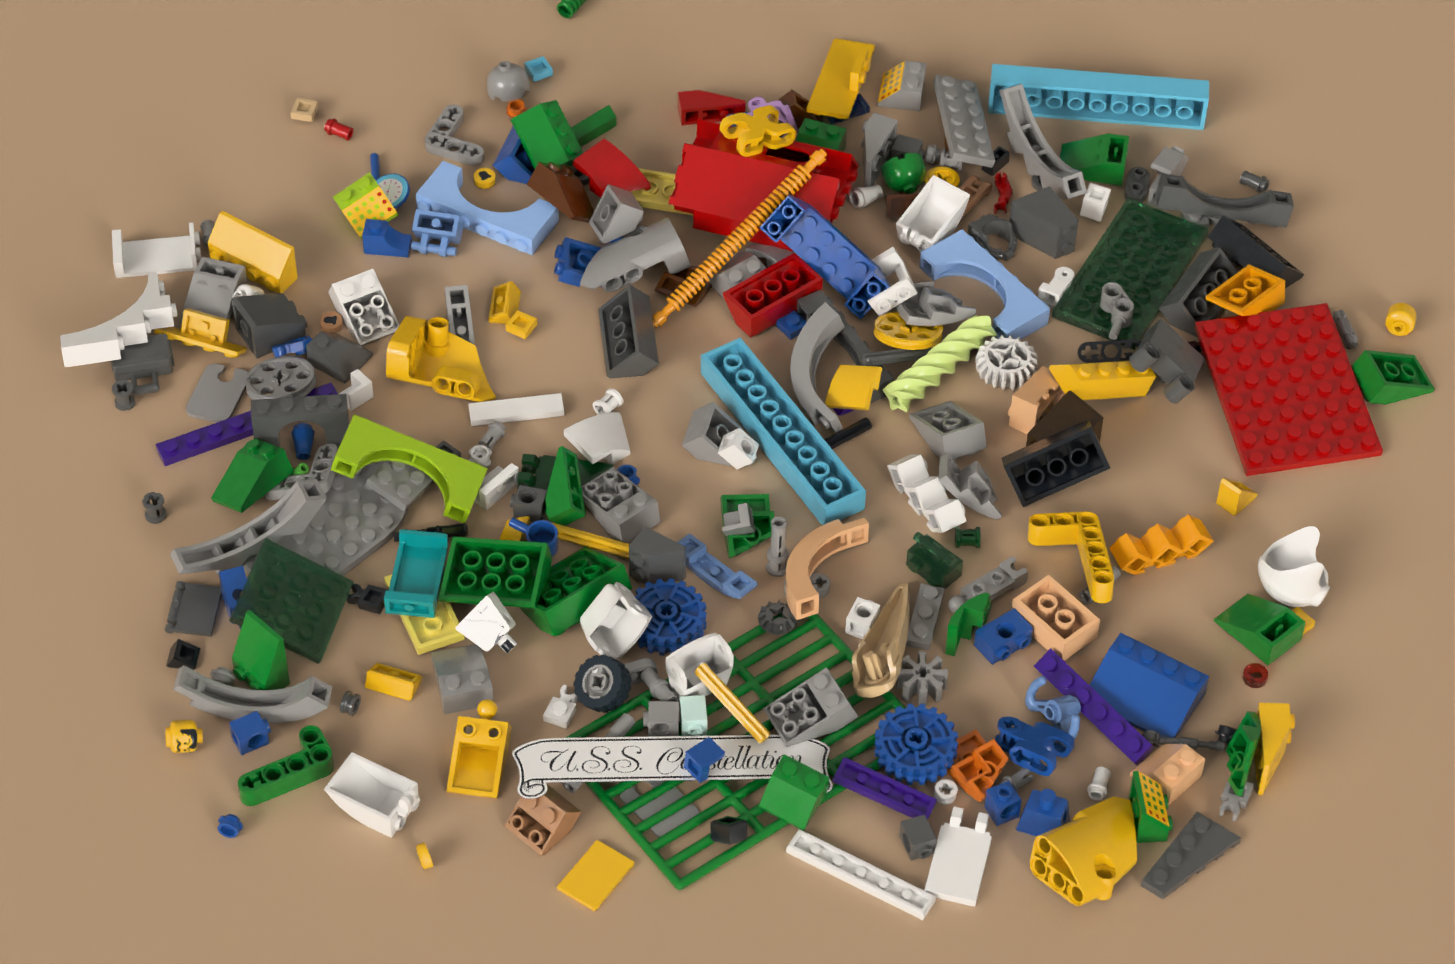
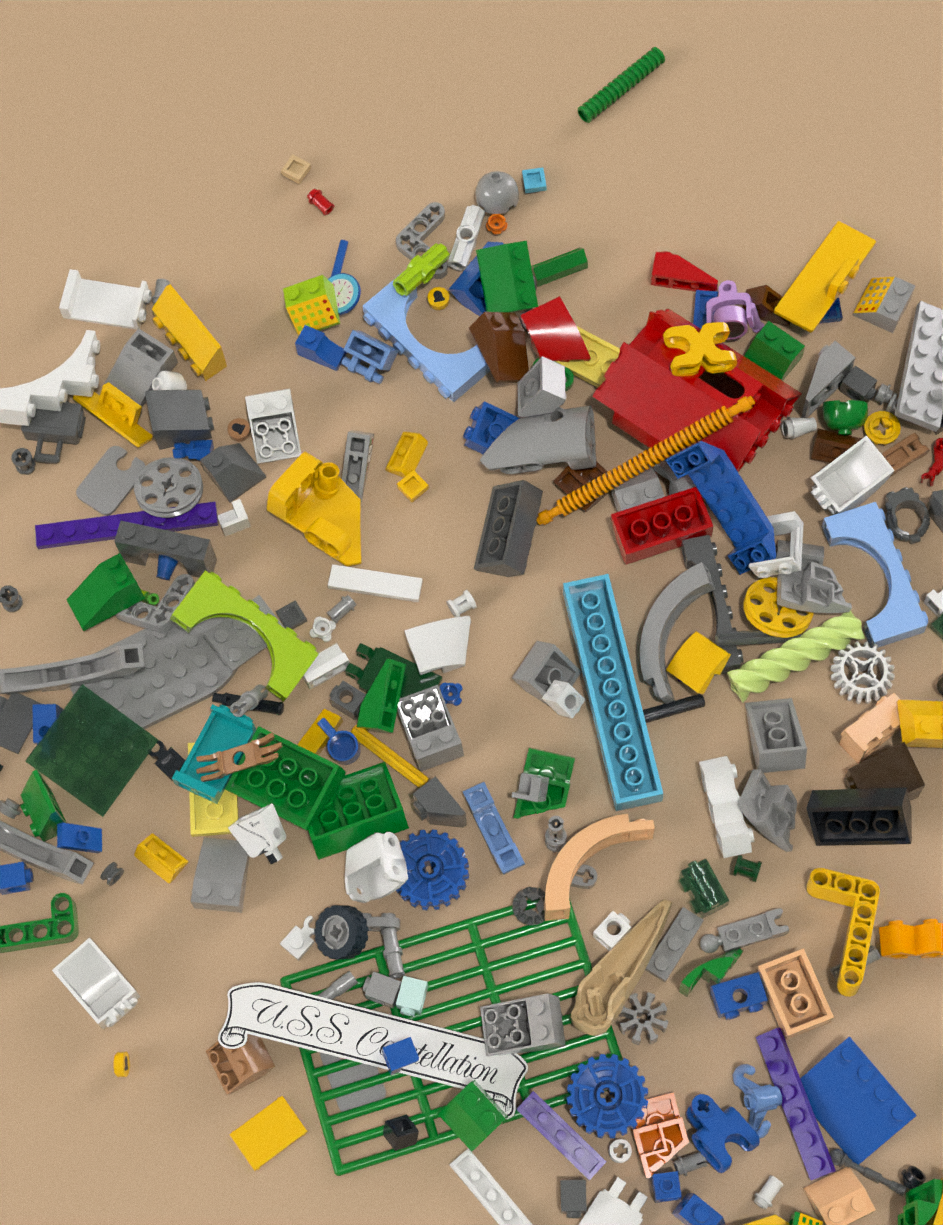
camera: 25 degrees right, 20 degrees up
(297, 673) = (79, 838): none -> blue plate
(434, 521) = (249, 700): none -> light grey pin
(458, 555) = (226, 758): none -> medium nougat piece
(461, 151) = (421, 269): none -> lime piece
(477, 757) = (203, 972): yellow slope -> none
(492, 125) = (470, 228): none -> white piece
(683, 662) = (431, 951): white piece -> none
(732, 703) = (448, 1000): yellow axle -> none
(791, 324) = (671, 561): blue plate -> none

